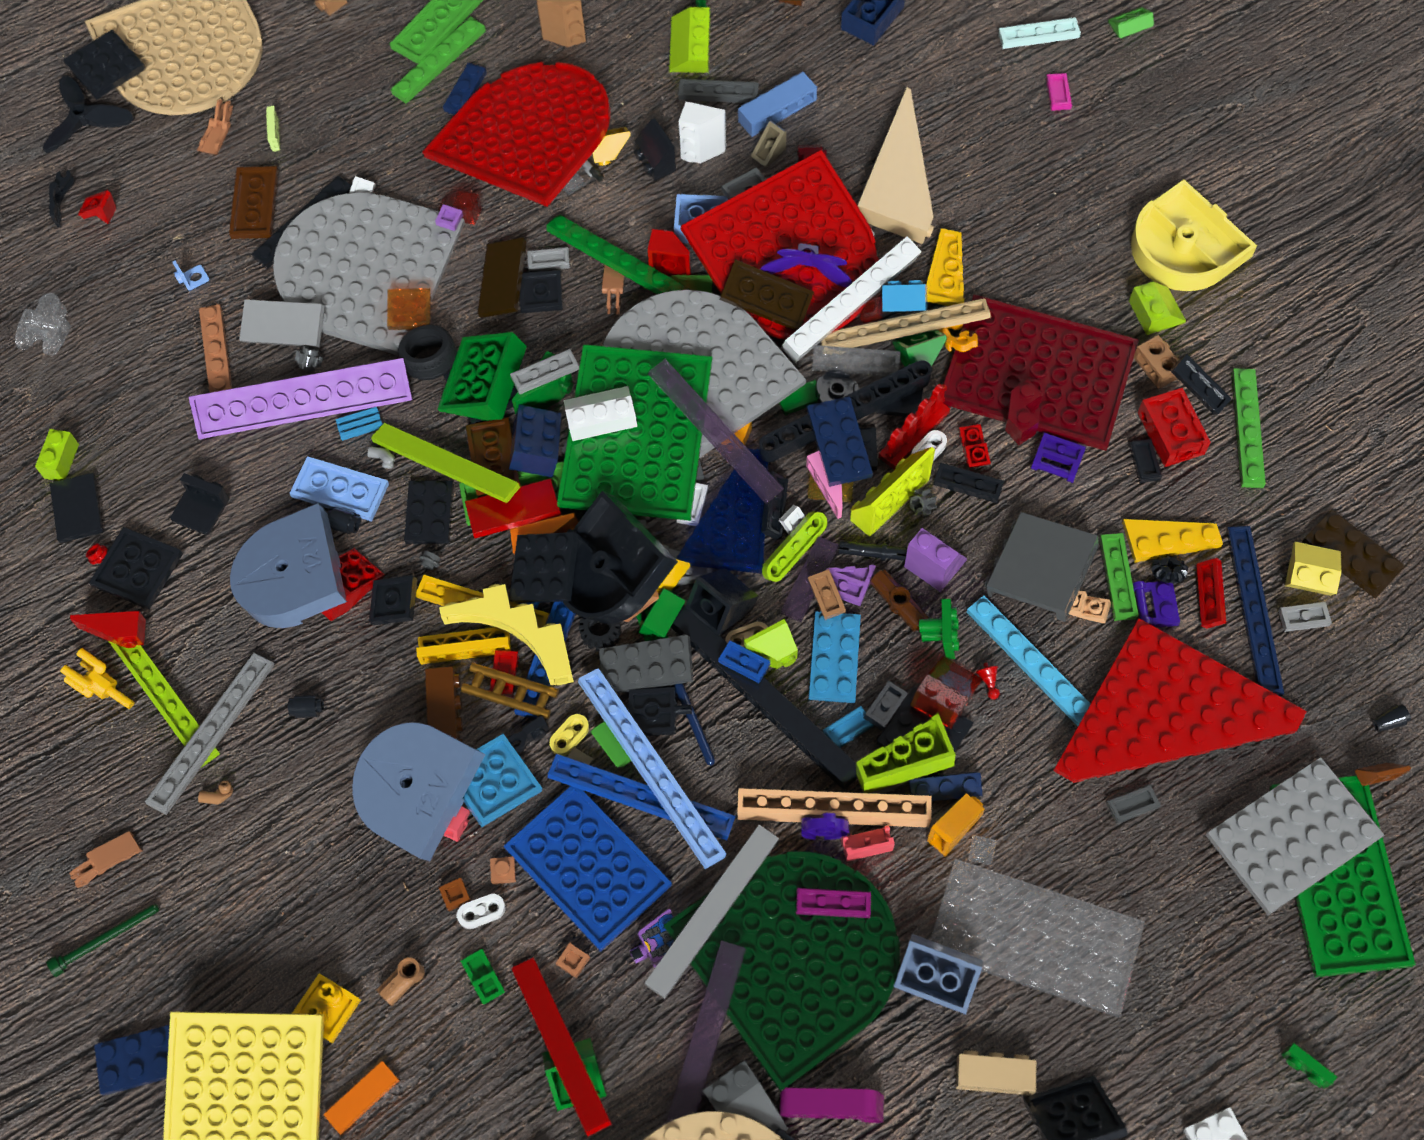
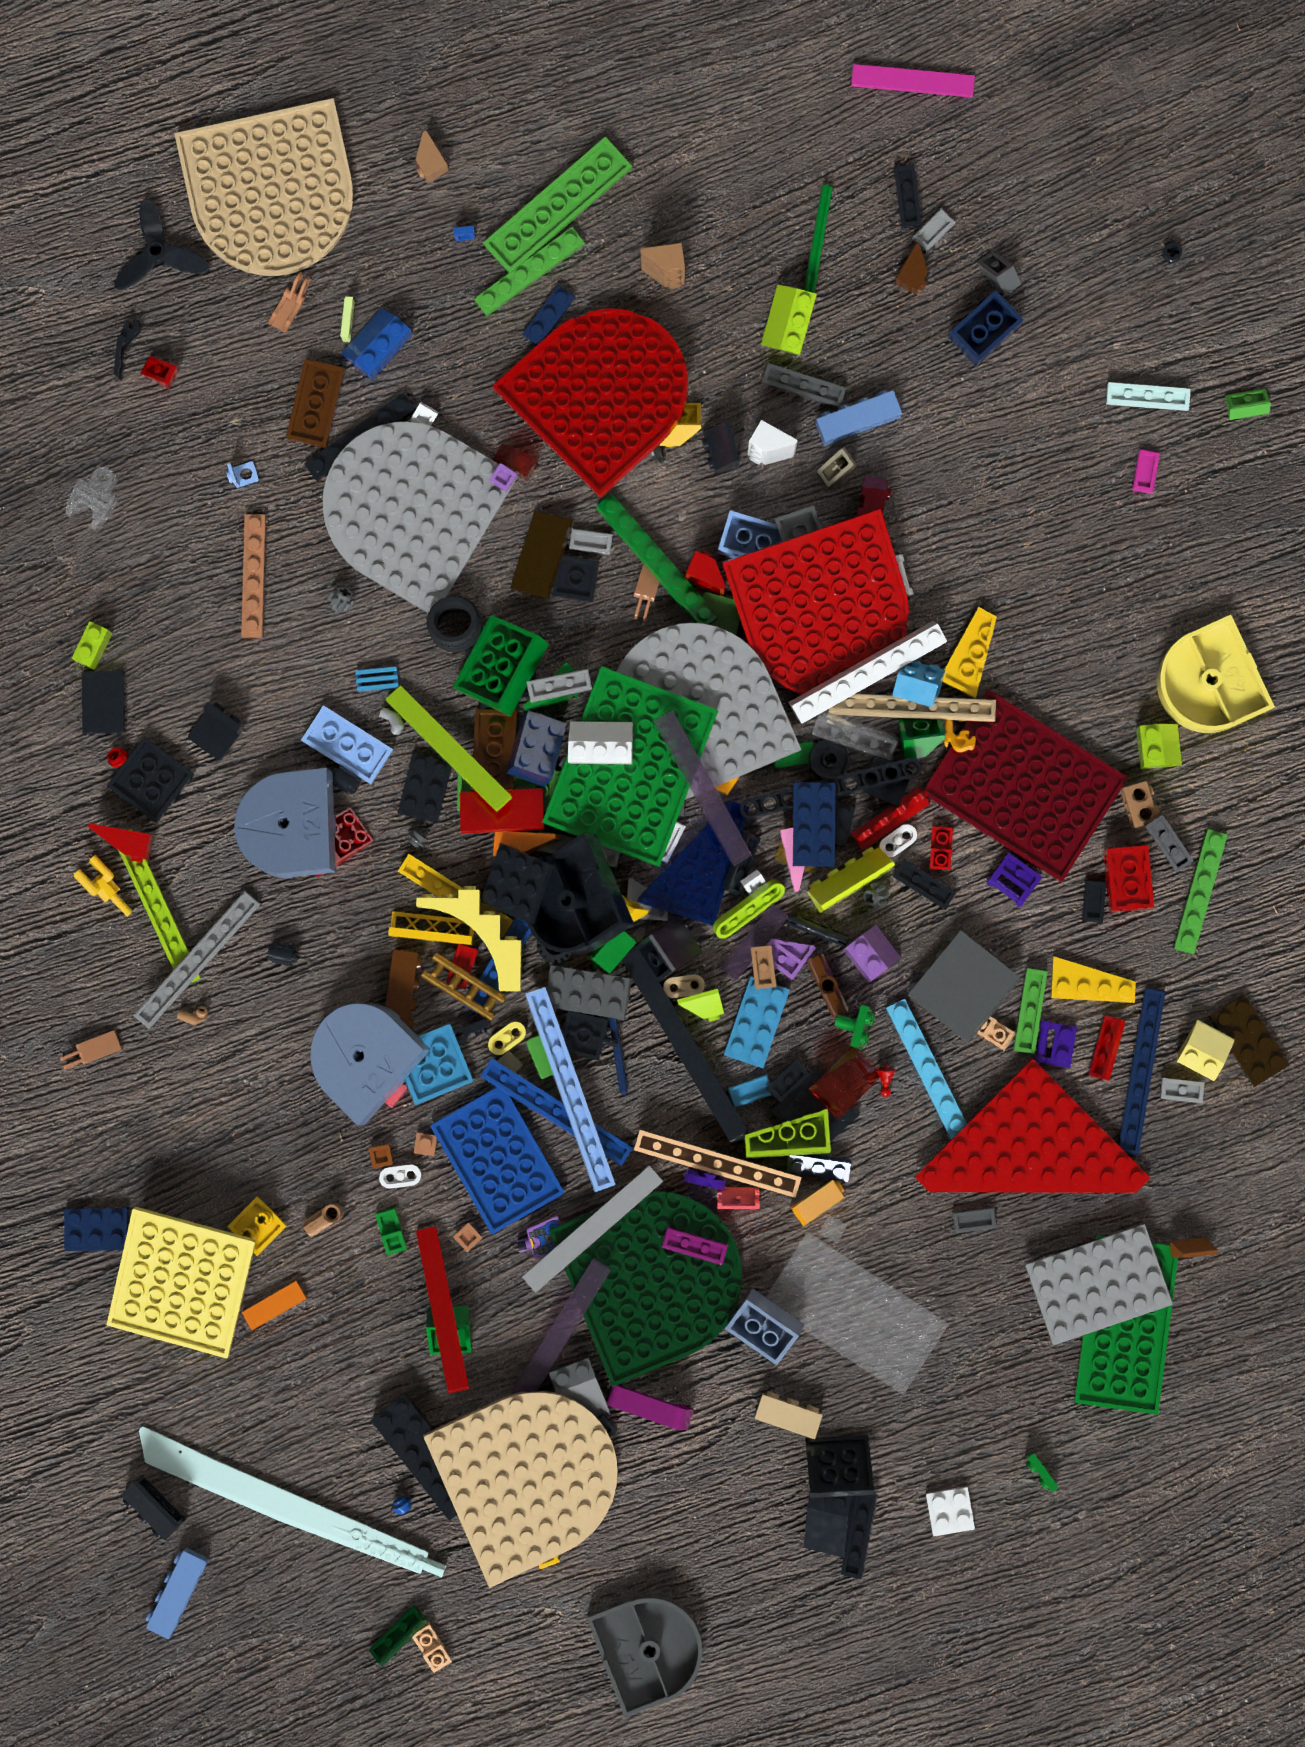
camera: 15 degrees right, 20 degrees up
(58, 964) = (43, 1133): dark green piece -> none
(104, 64) = (188, 197): black plate -> none
(282, 323) = (321, 556): light grey tile -> none
(300, 398) = (327, 643): plate -> none
(307, 142) = (377, 343): none -> blue slope
(371, 40) = (464, 233): none -> blue tile
(393, 600) = (376, 872): black plate -> none
(408, 308) = (445, 572): clear orange plate -> none
(744, 661) = (673, 1015): blue plate -> none
(766, 295) = (787, 651): dark brown plate -> none
(824, 263) = (851, 636): dark purple piece -> none
(871, 310) = (887, 683): clear red plate -> none
(898, 186) = (949, 550): tan slope -> none
(1020, 421) = (986, 838): dark red brick -> none
(1163, 573) = (1070, 1019): black gear -> none
(1392, 718) = (1221, 1202): black cone -> none

